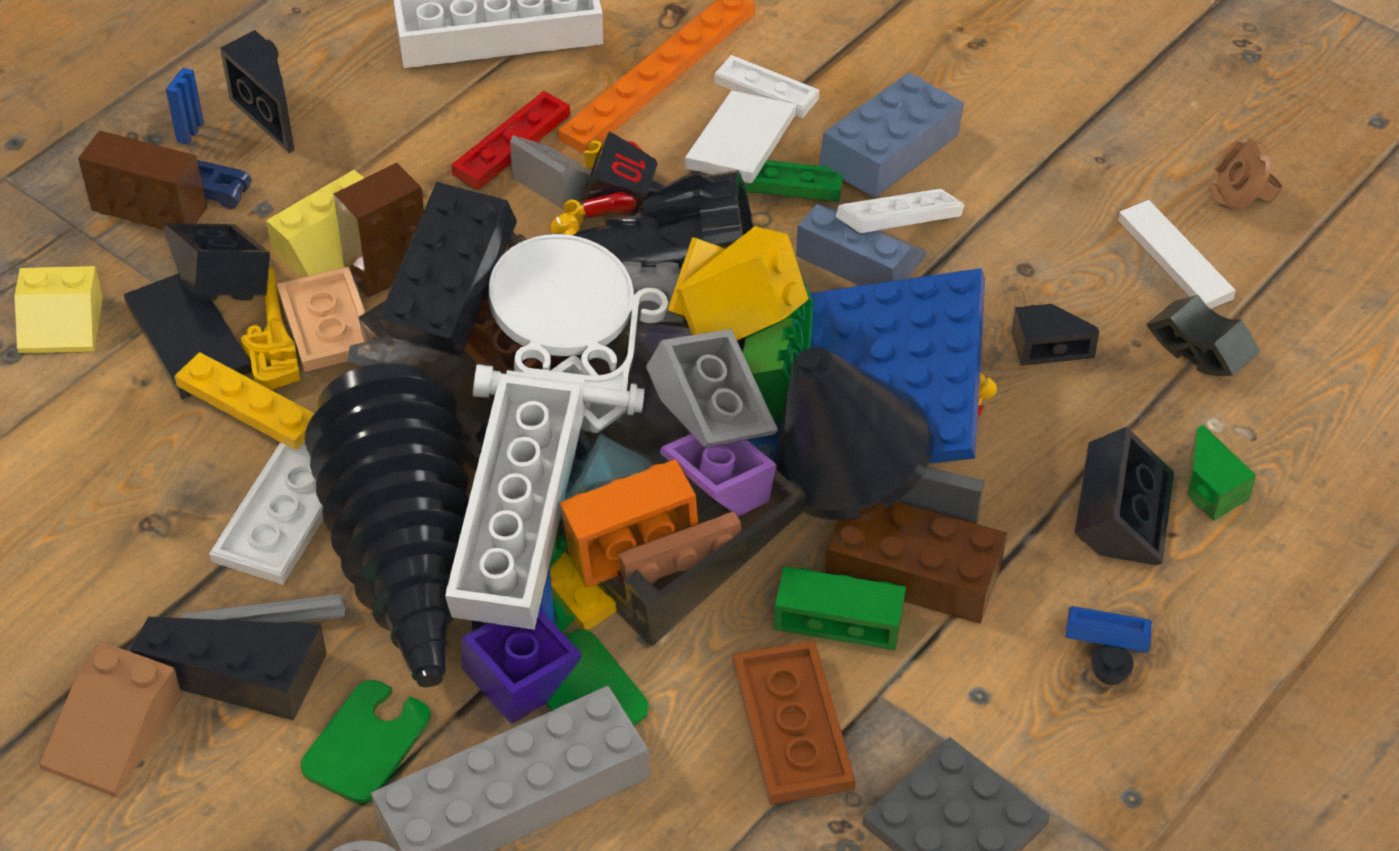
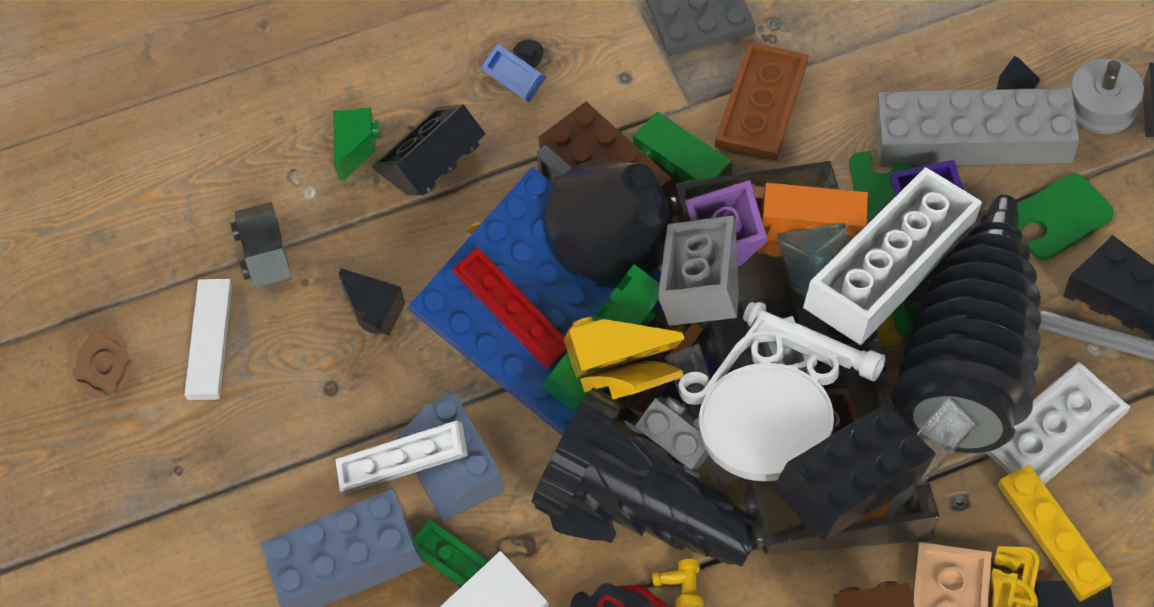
camera: 145 degrees left, 10 degrees up
(886, 322) = (511, 308): none -> red tile

